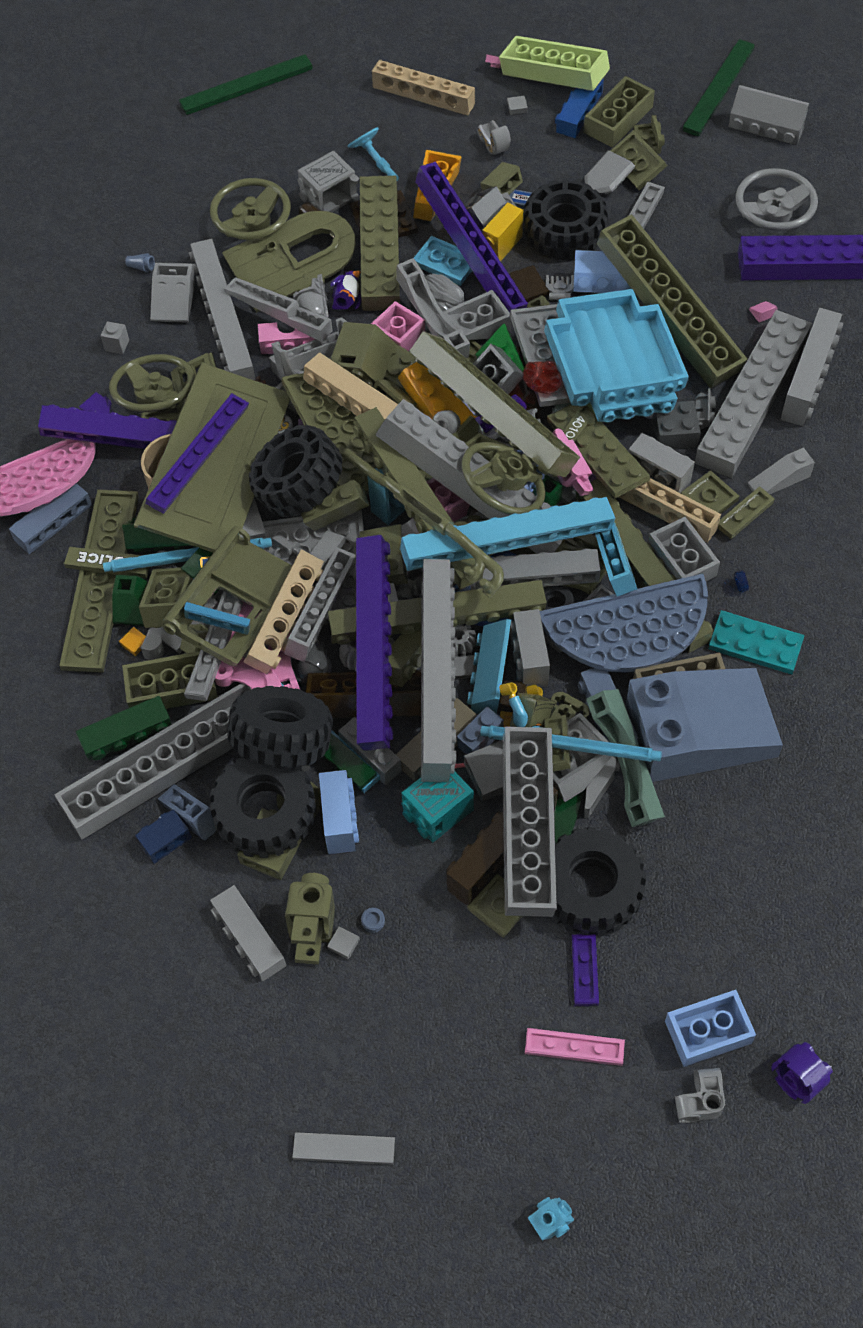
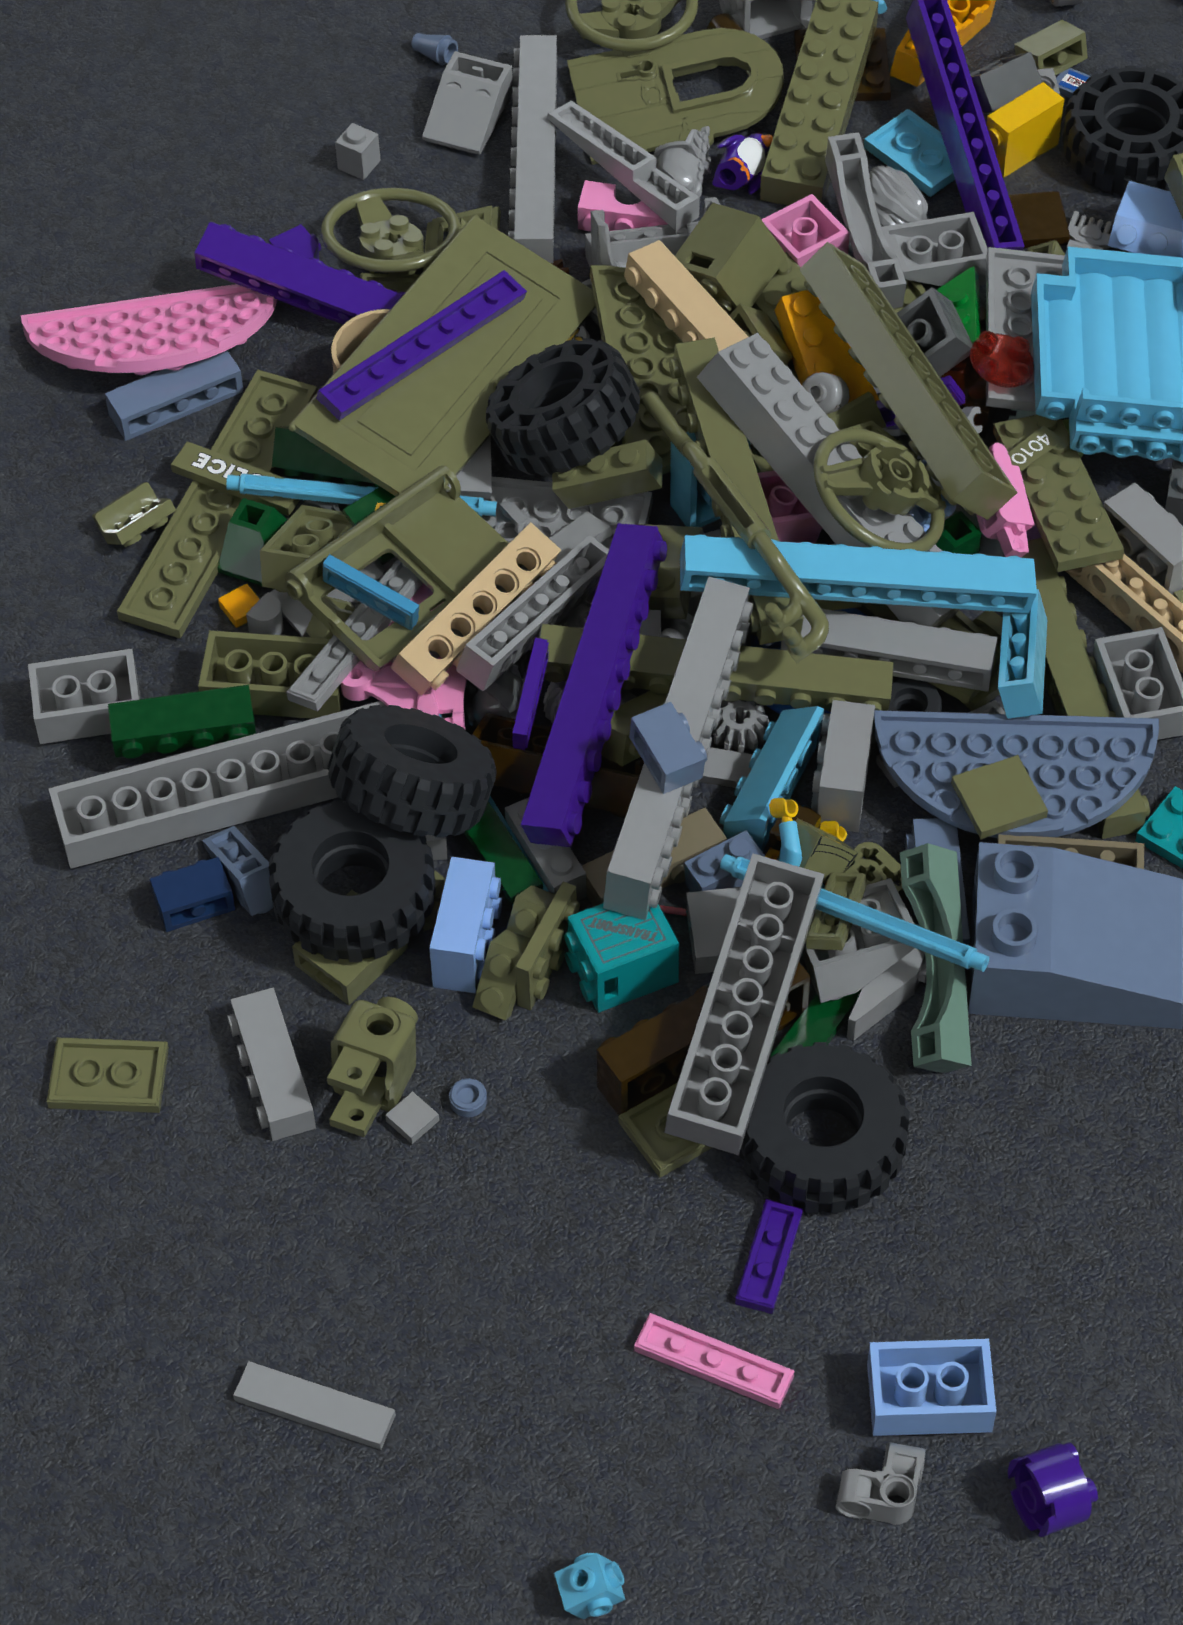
camera: 15 degrees right, 5 degrees down
(49, 602) = (132, 514): none -> olive bracket
(54, 725) = (75, 693): none -> light grey brick
(147, 968) = (108, 1075): none -> olive tile
(336, 658) = (530, 694): none -> dark purple tile
(373, 819) = (497, 983): none -> olive arch
(392, 812) = (545, 948): none -> olive plate
(436, 675) = (668, 747): none -> sand blue brick
(629, 647) = (999, 797): none -> olive tile

